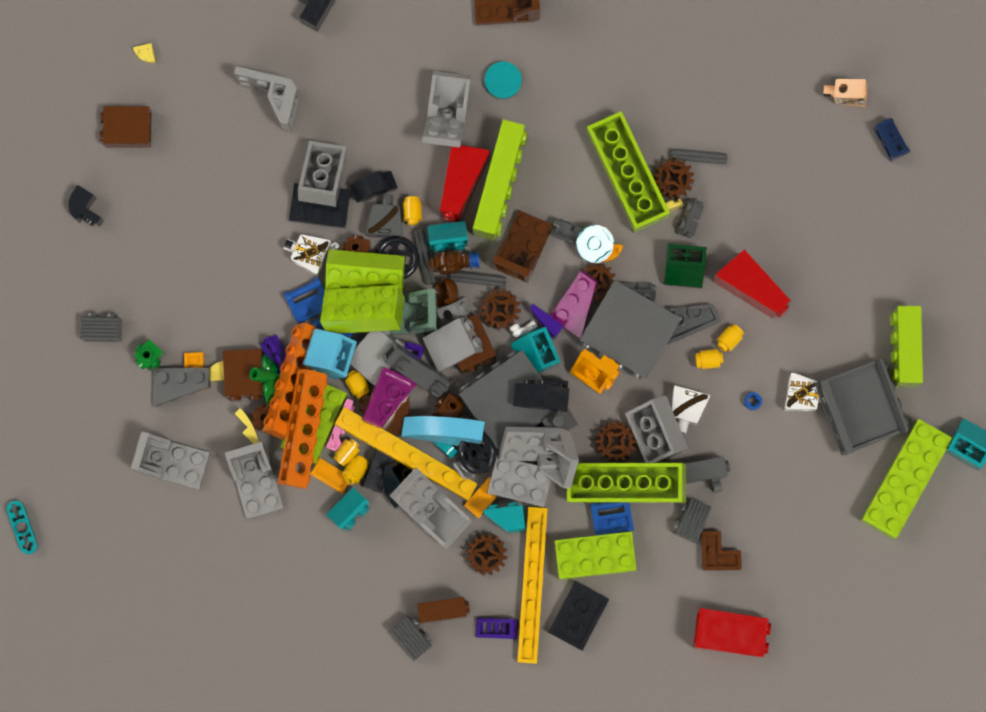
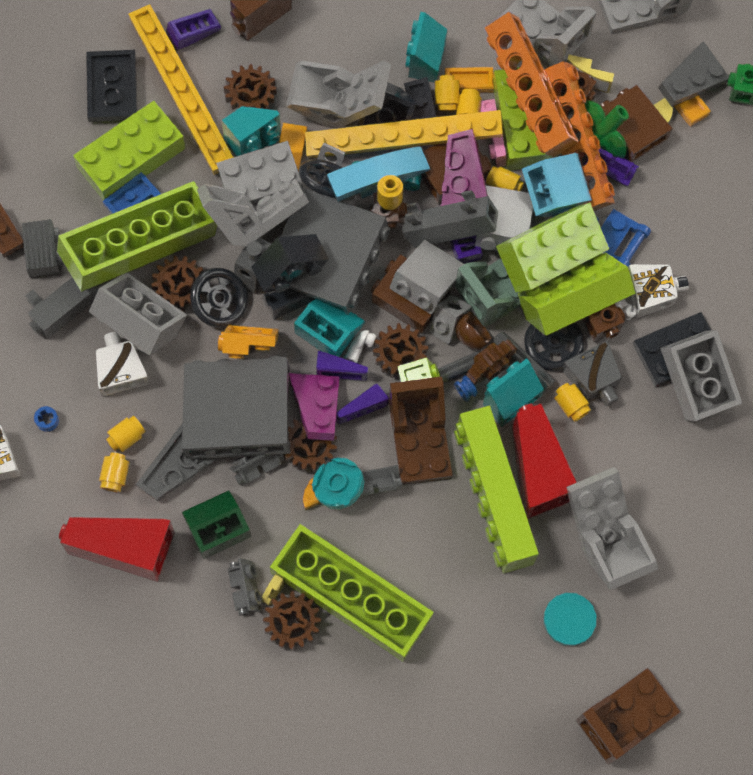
camera: 140 degrees right, 10 degrees down
(373, 185) = (633, 402): black brick -> none
(452, 407) = (389, 192): none -> yellow brick
(501, 281) = (418, 370): none -> bracket
(541, 287) = (367, 402): none -> dark purple slope
(599, 400) = (239, 298): none -> black plate
(699, 156) = (277, 669): dark grey axle -> none

